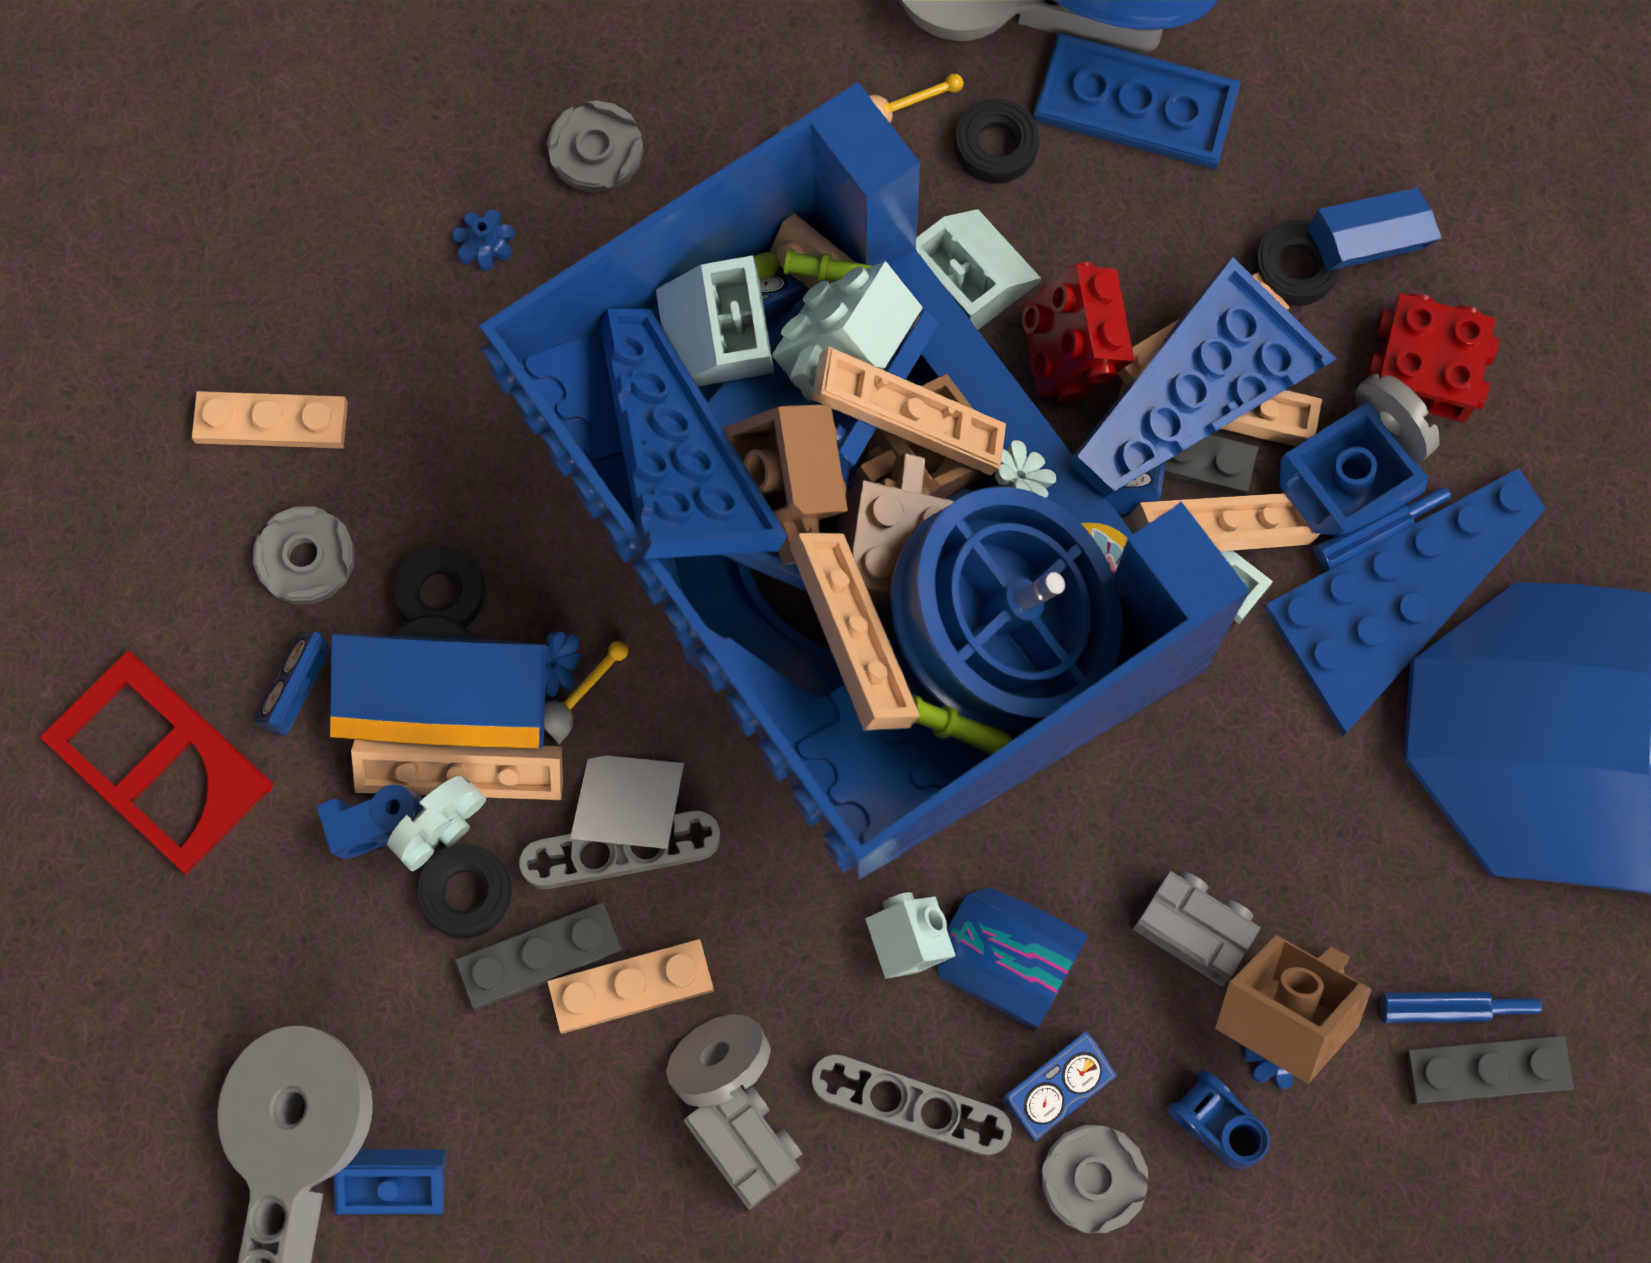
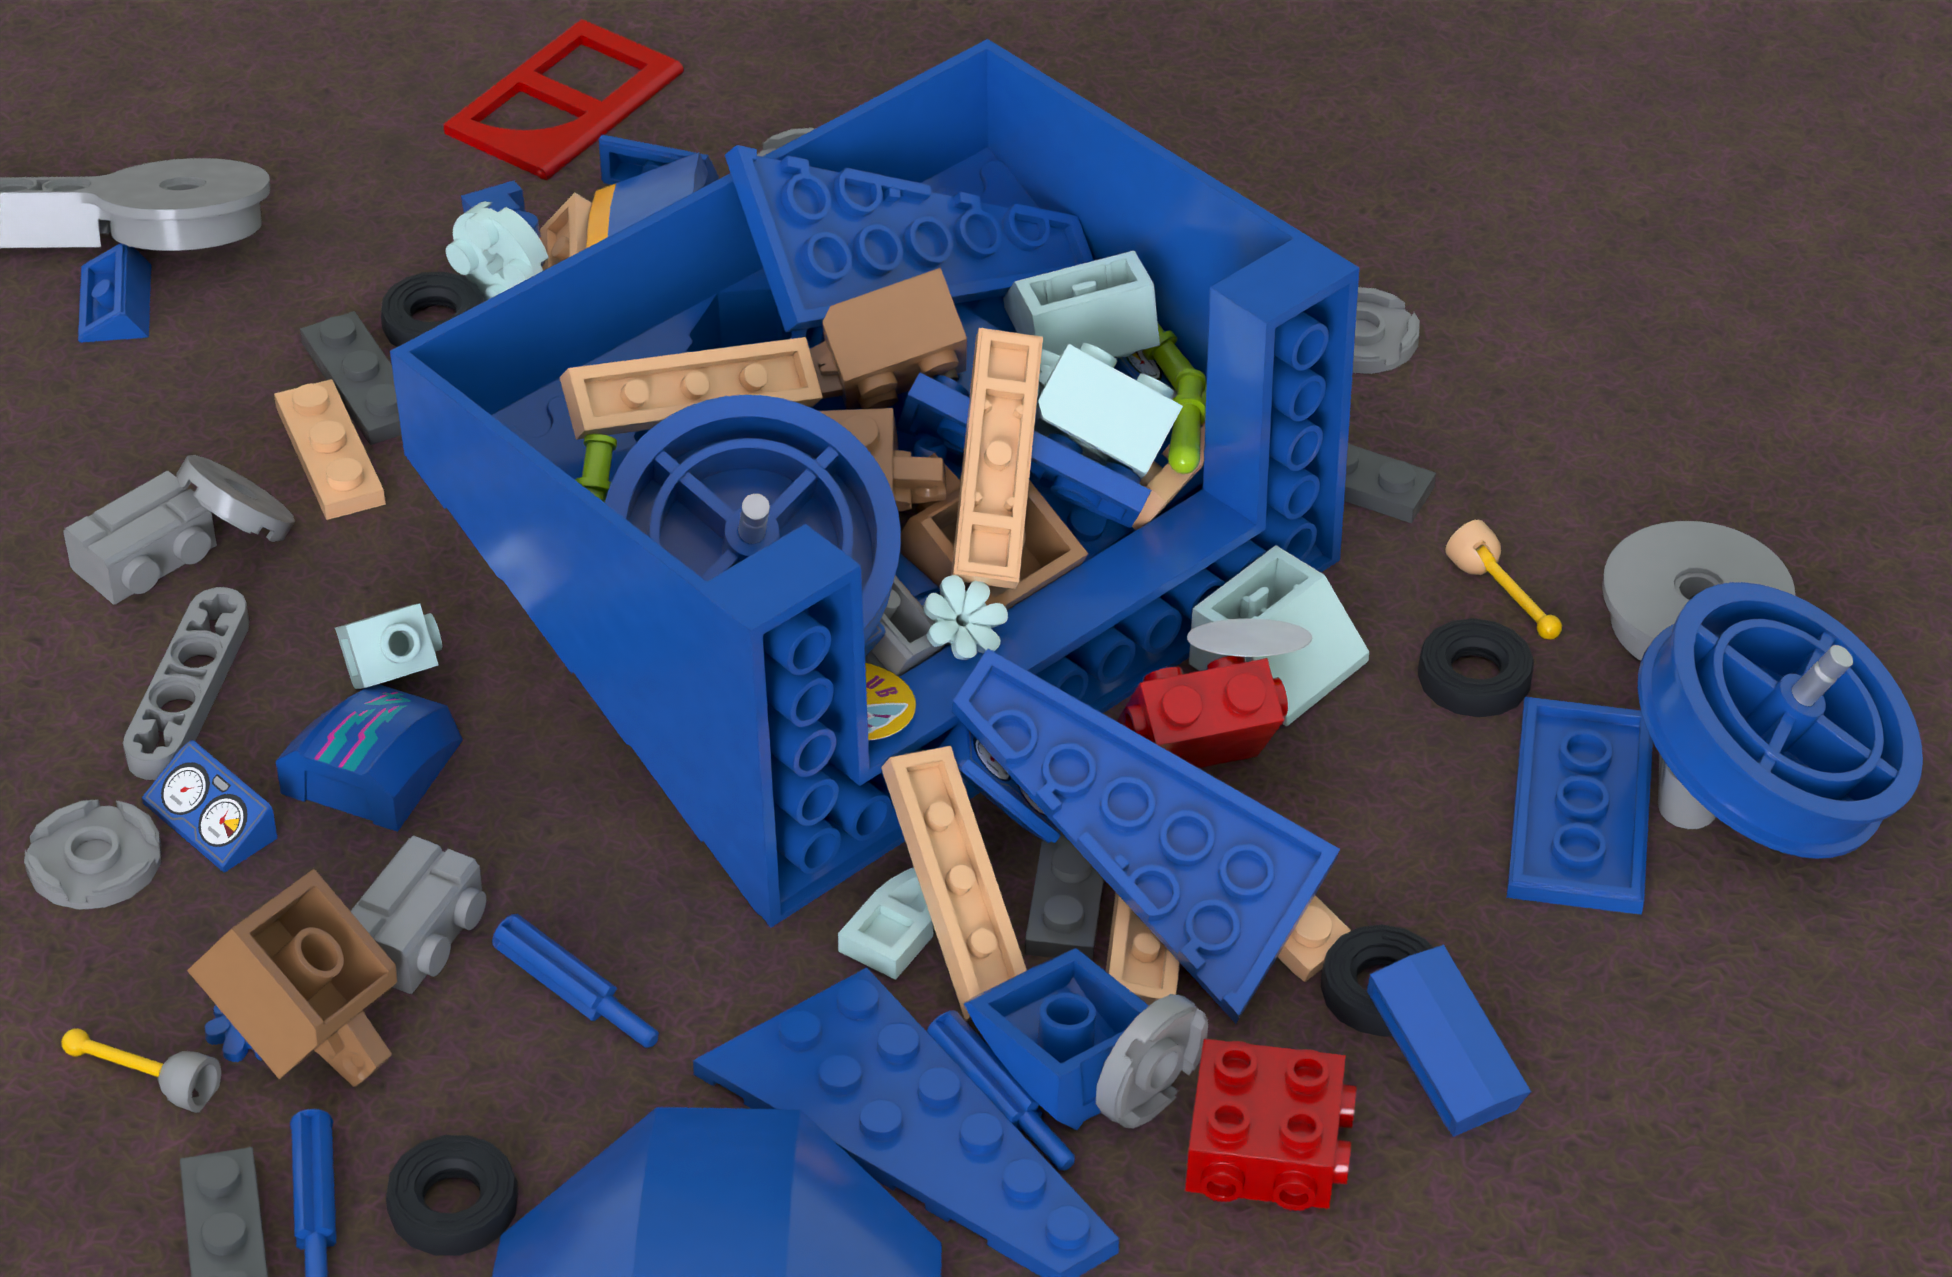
camera: 85 degrees right, 30 degrees down
(1032, 277) = (1249, 637): none -> white sticker
(1218, 1119) = (151, 956): blue piece -> none
(1255, 816) = (568, 977): none -> blue axle
(1339, 1102) = (176, 1076): none -> light grey hinge
(1472, 883) = (452, 1158): none -> black tyre

